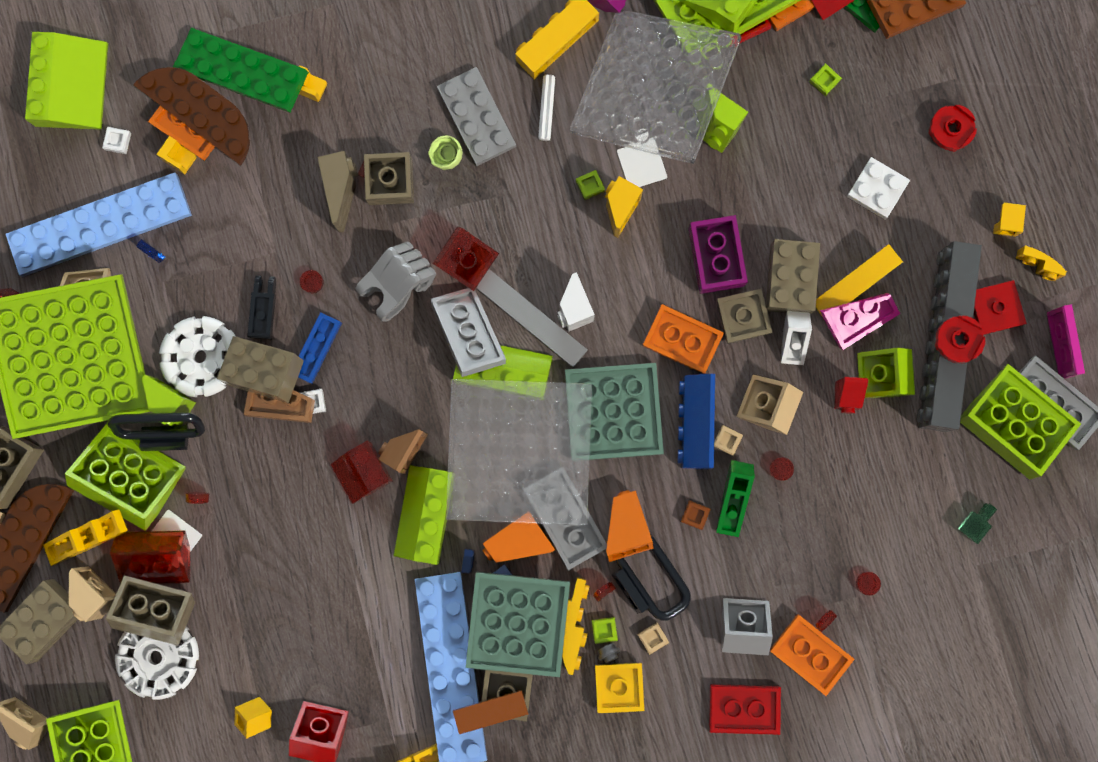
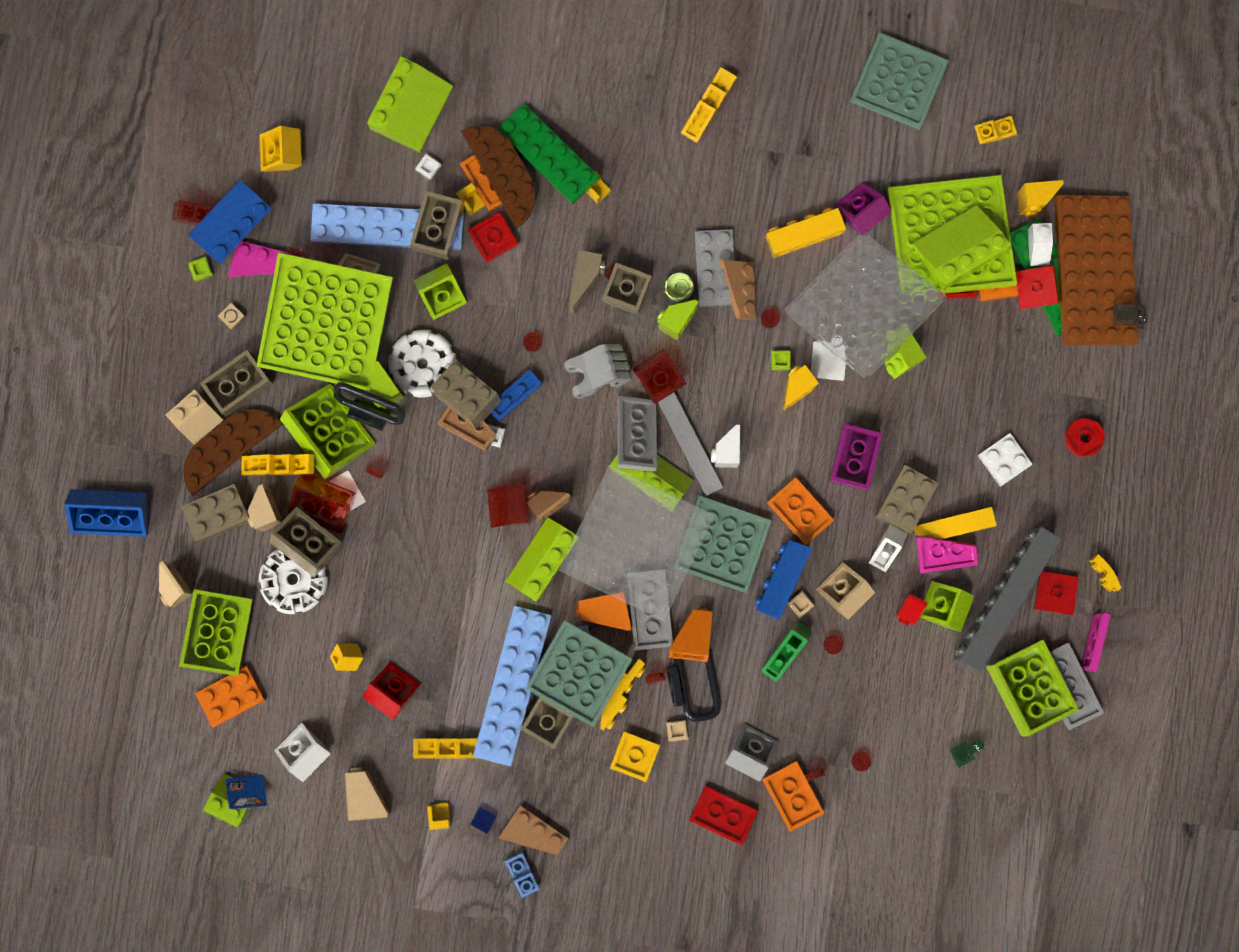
camera: 20 degrees right, 0 degrees up
(149, 197) = (437, 225): none -> dark tan brick
(150, 251) = (418, 264): clear blue tile -> none
(185, 270) = (440, 291): none -> lime slope
(219, 186) = (493, 237): none -> red plate
(262, 309) = (485, 348): black hinge -> none
(457, 186) = (676, 318): none -> lime slope
(468, 560) = (561, 609): dark blue tile -> none
(490, 712) = (530, 730): dark orange tile -> none
(512, 121) = (742, 287): none -> medium nougat wing
(546, 107) = (773, 285): white axle -> none
(558, 145) = (769, 319): none -> clear red tile
(604, 630) = (642, 708): lime tile -> none
(608, 653) = (637, 726): flat silver plate -> none
(695, 515) = (750, 651): dark orange tile -> none
(744, 316) = (855, 514): dark tan plate -> none
(825, 79) = (1001, 356): lime tile -> none
(973, 336) = (1022, 604): red plate -> none
(1011, 220) = (1096, 529): yellow panel -> none

